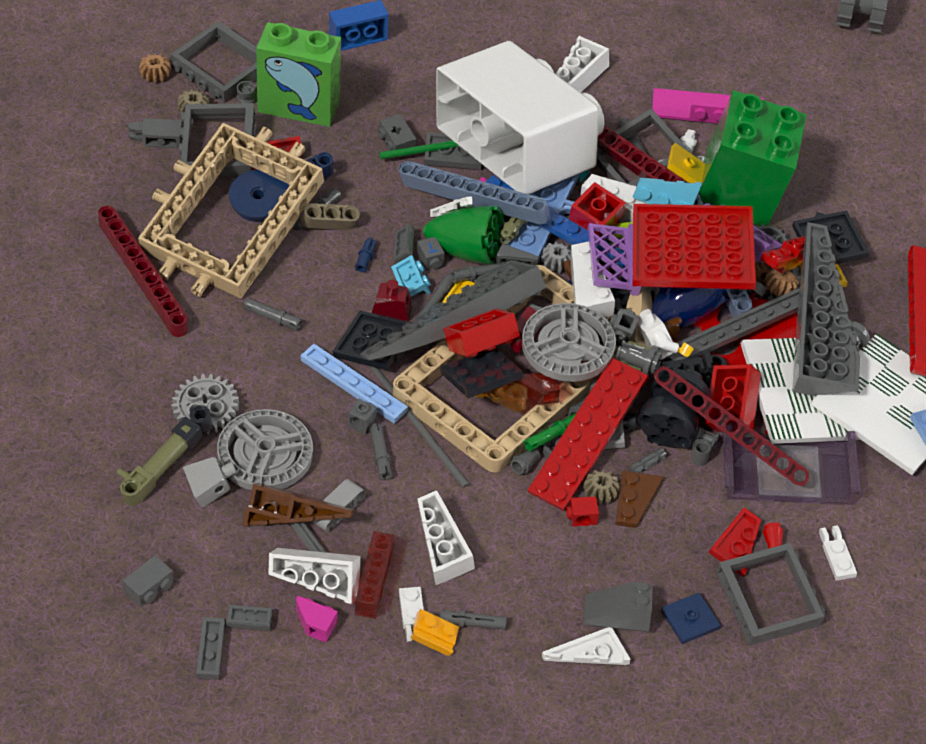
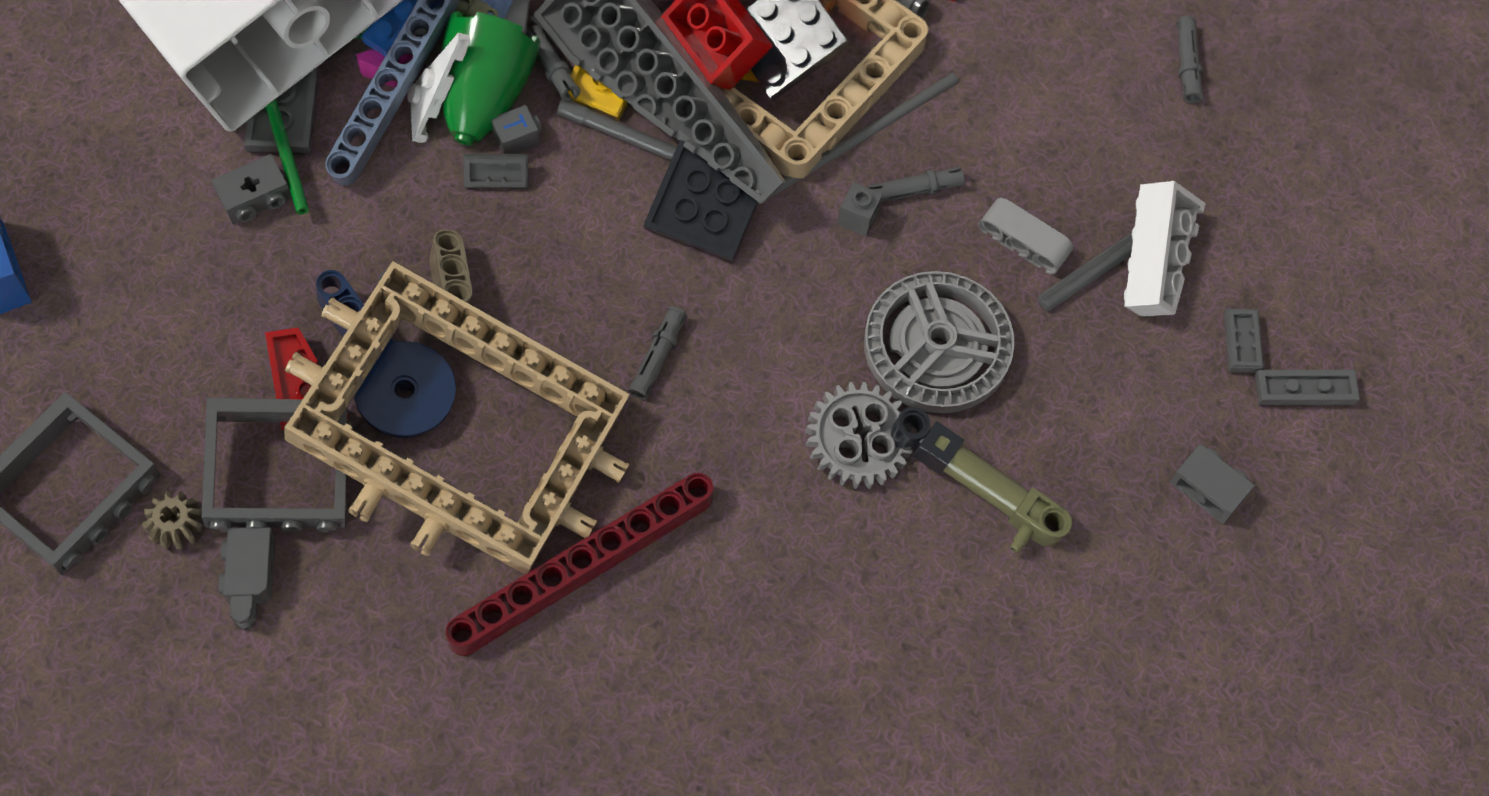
camera: 95 degrees left, 15 degrees up
(155, 68) = (74, 584): medium nougat gear -> none
(209, 479) = (1014, 412): light grey torso -> none
(246, 92) = (143, 427): dark grey wheel -> none
(277, 505) = (1045, 317): reddish brown wedge -> none
(298, 74) = (149, 316): bright green brick -> none
(315, 618) = (1234, 250): dark pink slope -> none
(353, 383) = (788, 229): light blue plate -> none
(365, 255) = (518, 226): dark blue axle -> none
(374, 574) = (1122, 173): clear red brick -> none
(393, 301) = (629, 171): dark red torso -> none
(410, 274) = (568, 158): medium azure bracket -> none
(410, 604) = (1190, 134): white hinge -> none
(434, 632) = (1226, 100): light orange plate -> none
(444, 542) = (1072, 94): white wedge -> none

